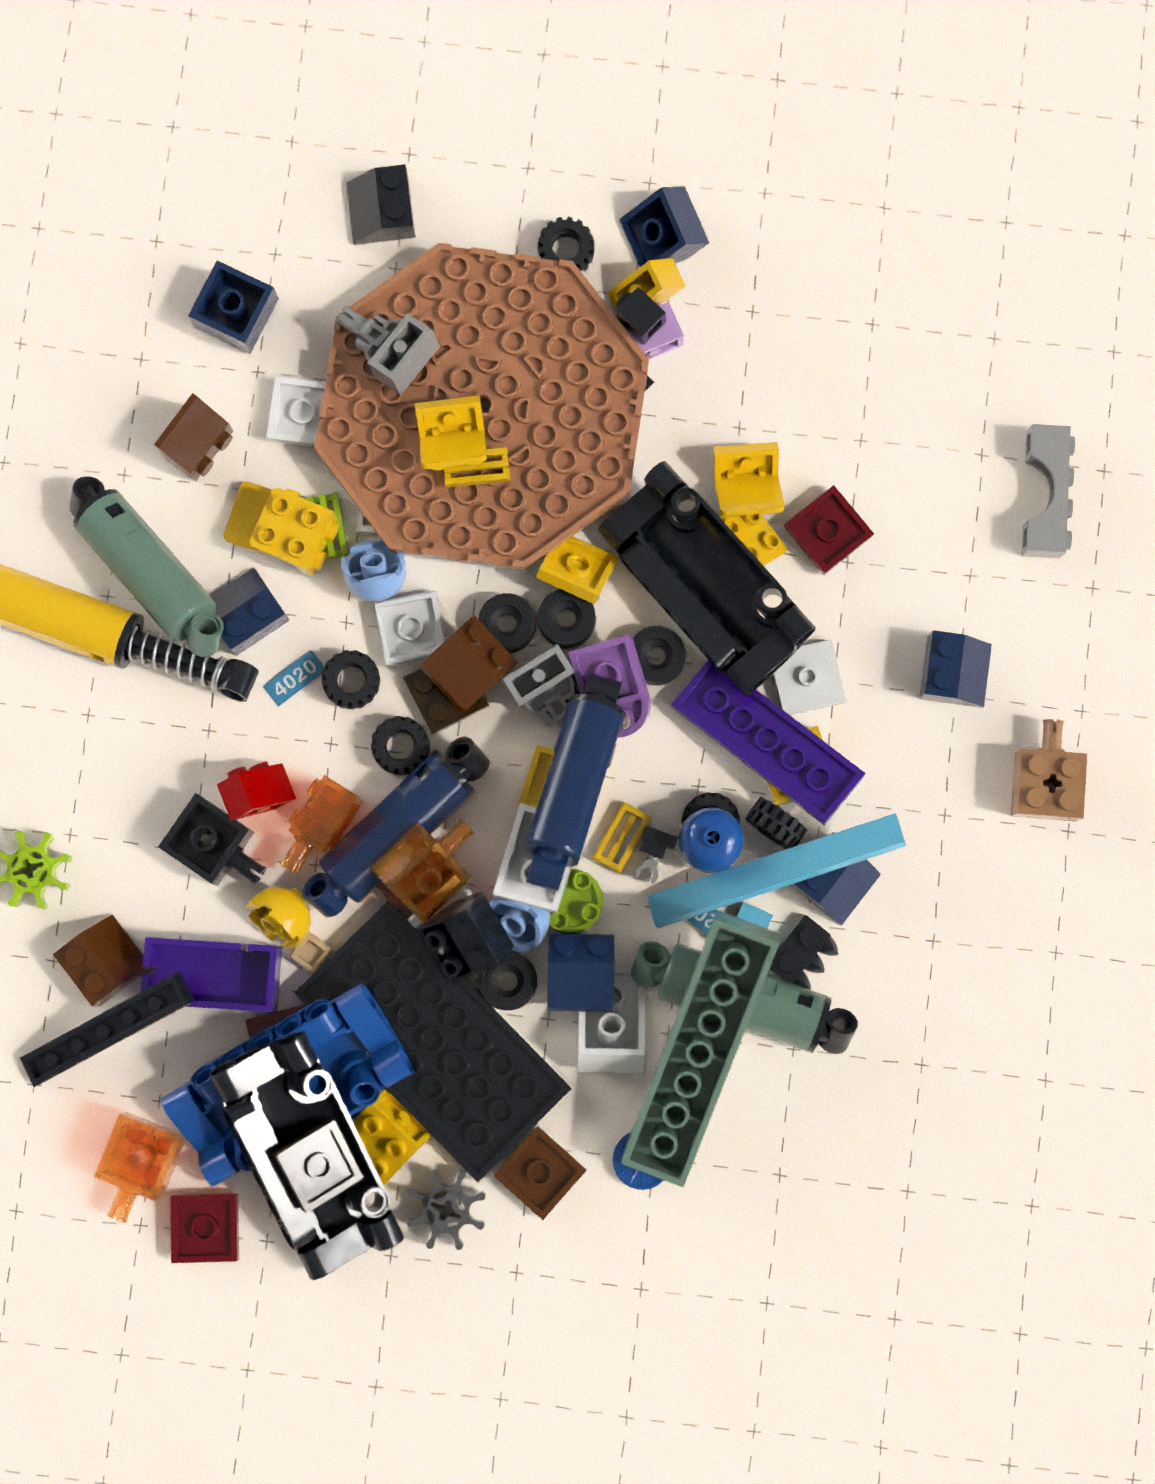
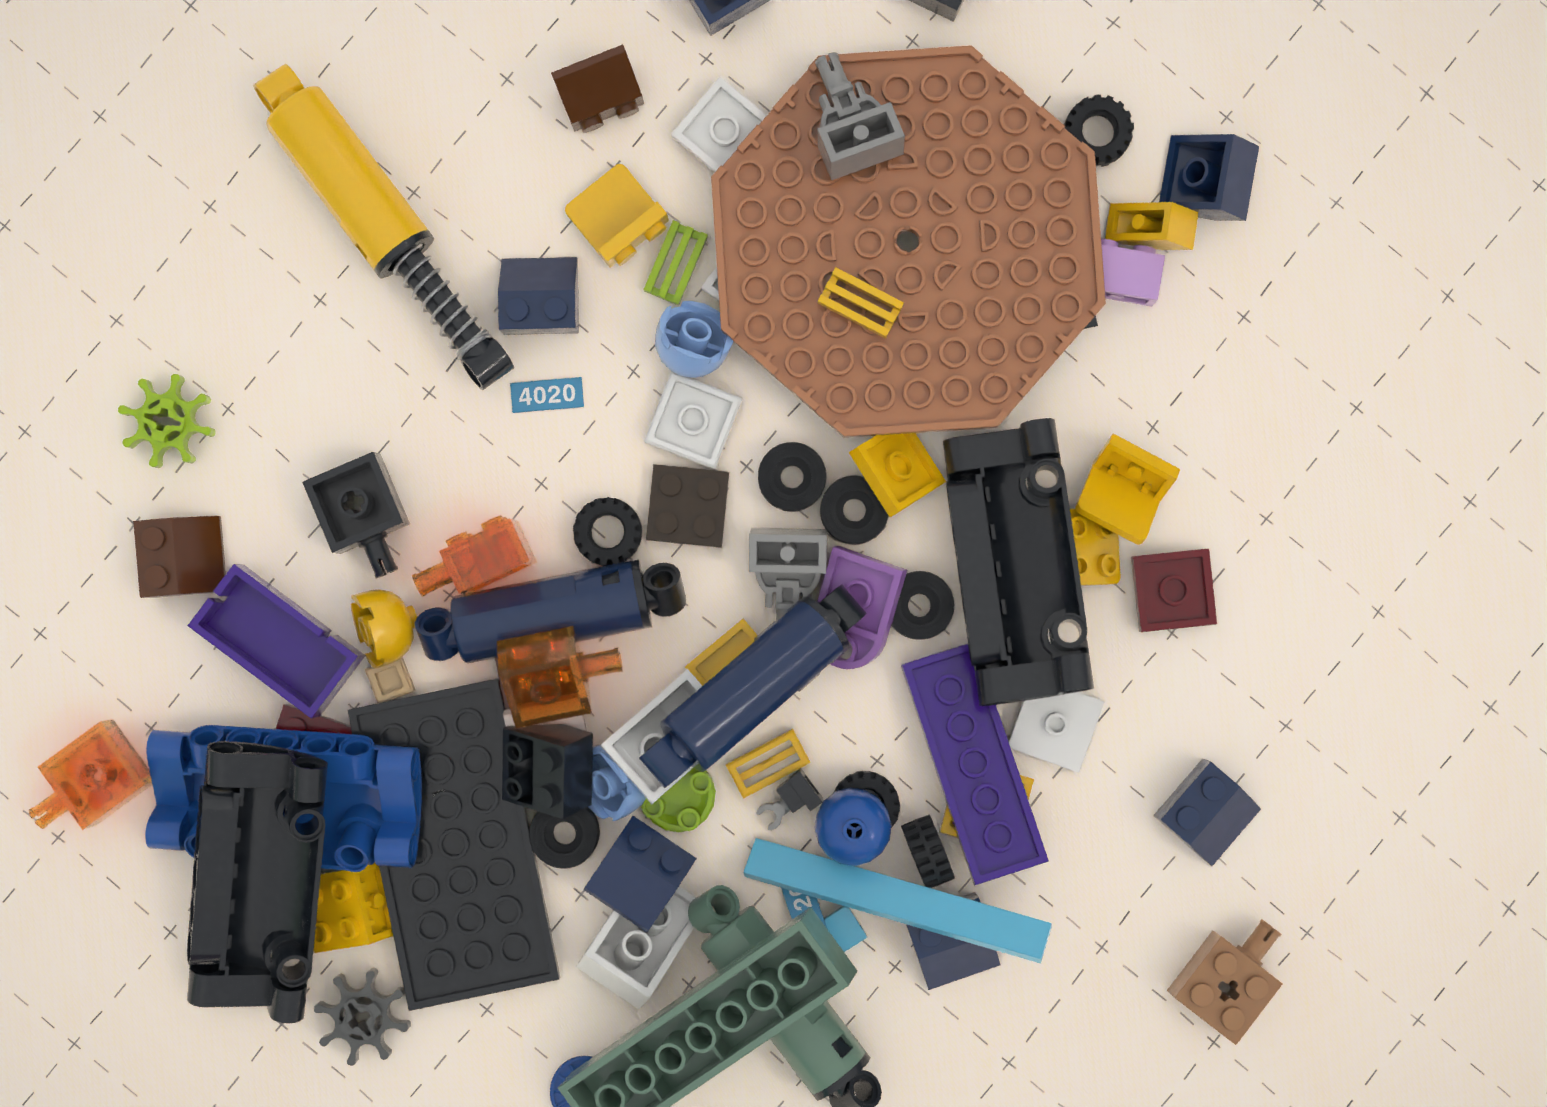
camera: 30 degrees right, 5 degrees up
(107, 1029) = (141, 630): black tile -> none
(145, 566) = (467, 189): sand green piece -> none
(204, 1228) = (117, 882): dark red plate -> none
(255, 790) = (435, 487): red brick -> none
(295, 530) = (637, 249): yellow bracket -> none
(318, 1165) = (260, 900): plate -> none
(340, 662) = (576, 433): black tyre -> none
(451, 432) = (856, 254): yellow bracket -> none
(468, 664) = (725, 495): reddish brown slope -> none
(540, 1172) = (476, 1040): reddish brown plate -> none
(640, 314) = (1126, 252): black brick -> none
(800, 952) = (872, 990): black plate -> none
(1049, 452) = (1448, 655): light grey arch -> none

